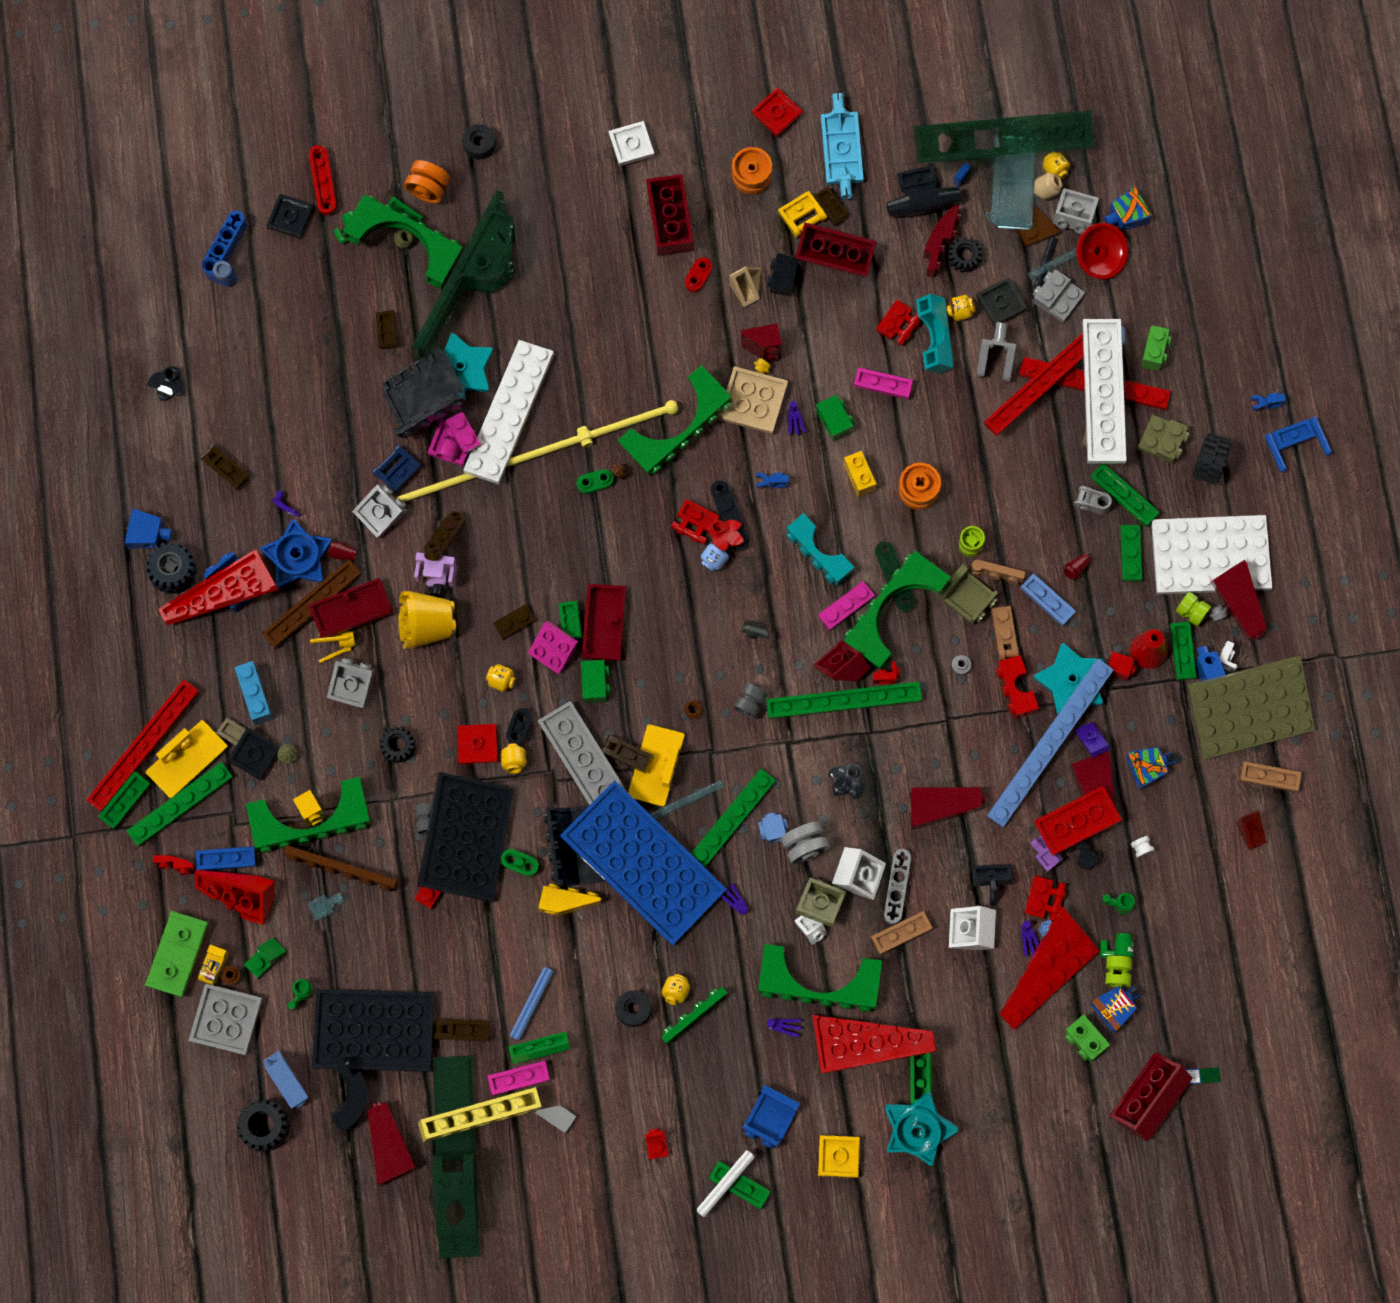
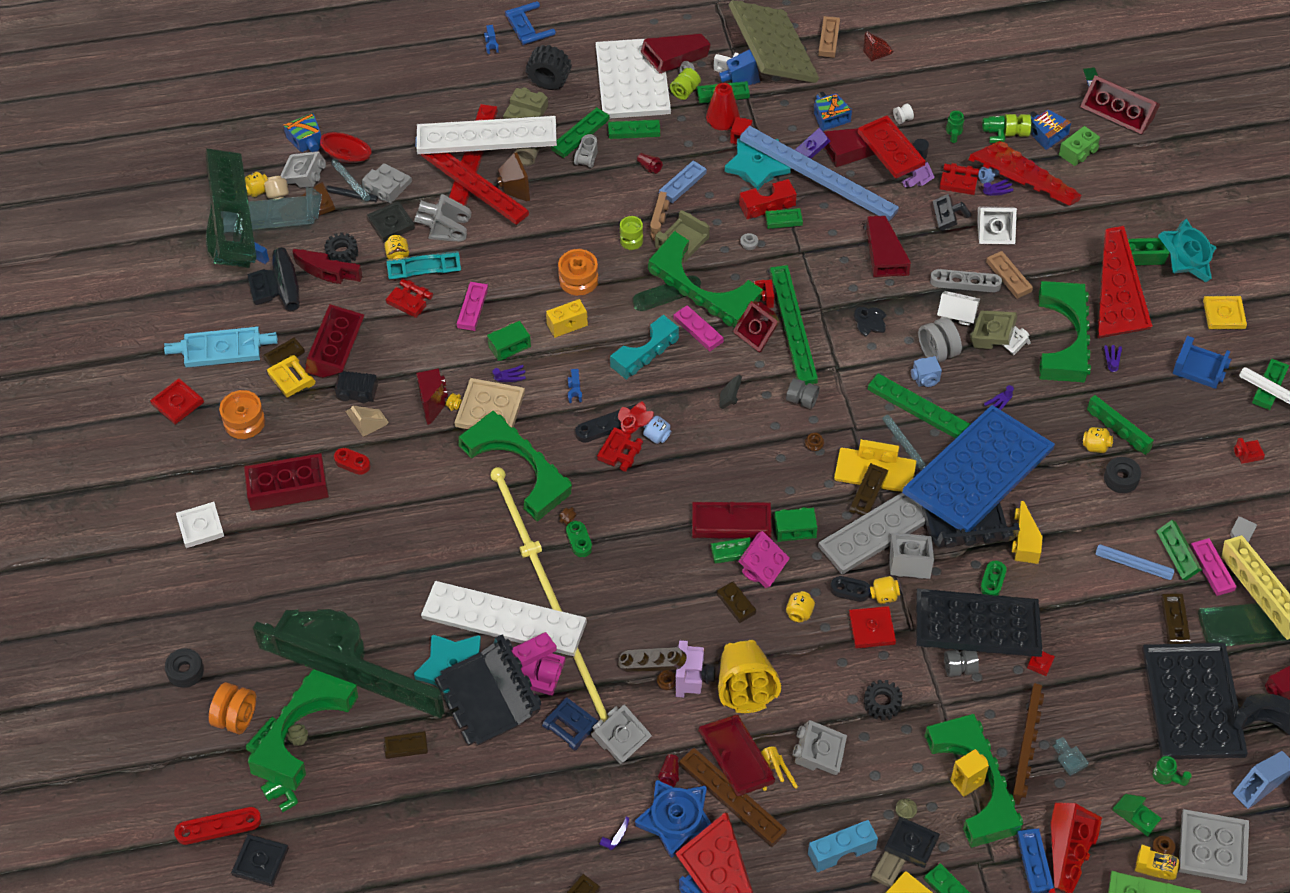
camera: 95 degrees left, 20 degrees down
(549, 785) = (911, 555): none -> light grey slope
(991, 703) = (784, 218): none -> green plate
(1004, 632) = (717, 212): medium nougat plate -> none
(1051, 424) = (514, 178): none -> reddish brown slope
(1155, 348) = (439, 111): bright green brick -> none

